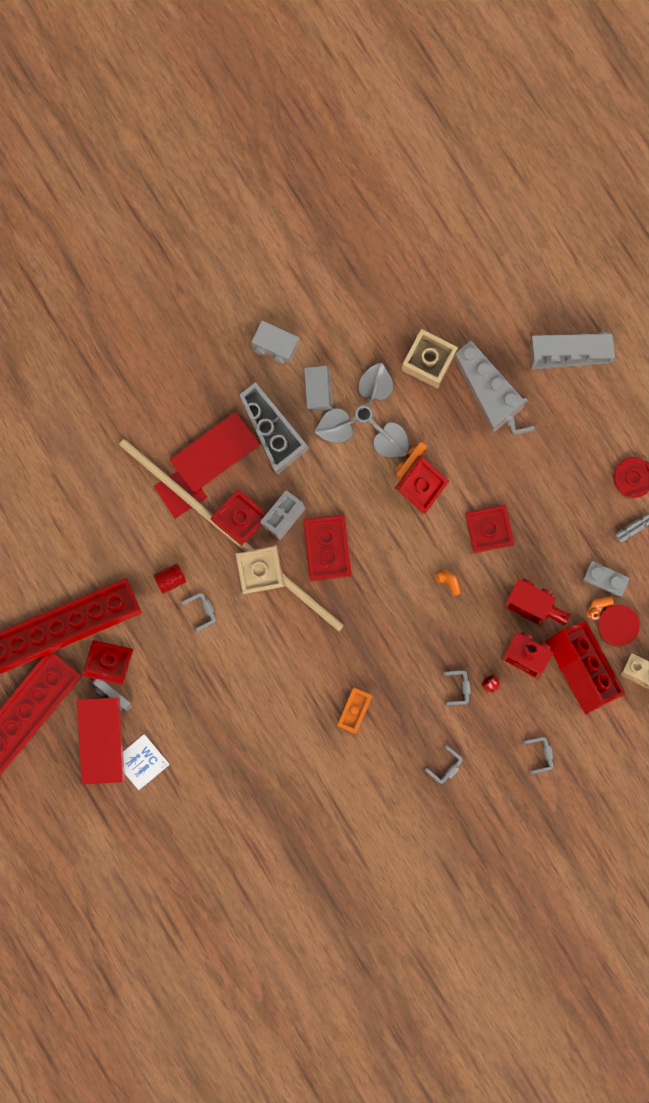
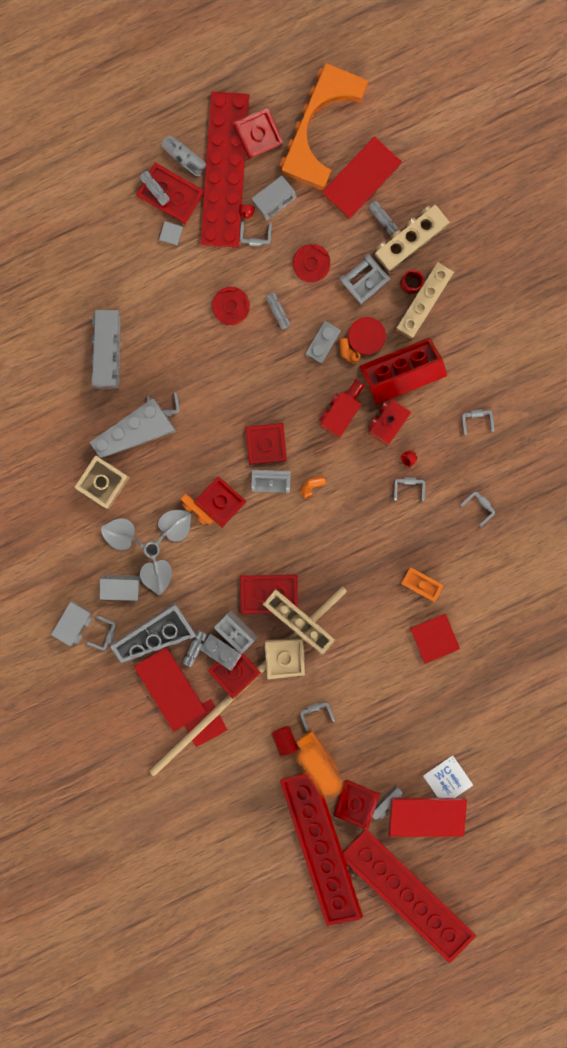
camera: 80 degrees left, 10 degrees up
(153, 607) = (319, 763): none -> orange arch
(259, 500) = (220, 652): none -> light grey plate
(260, 474) = (194, 648): none -> light grey axle
(264, 383) = (109, 637): none -> light grey piece
(296, 731) = (435, 638): none -> red tile
(301, 578) = (299, 621): none -> tan brick
(449, 537) = (270, 481): none -> light grey hinge

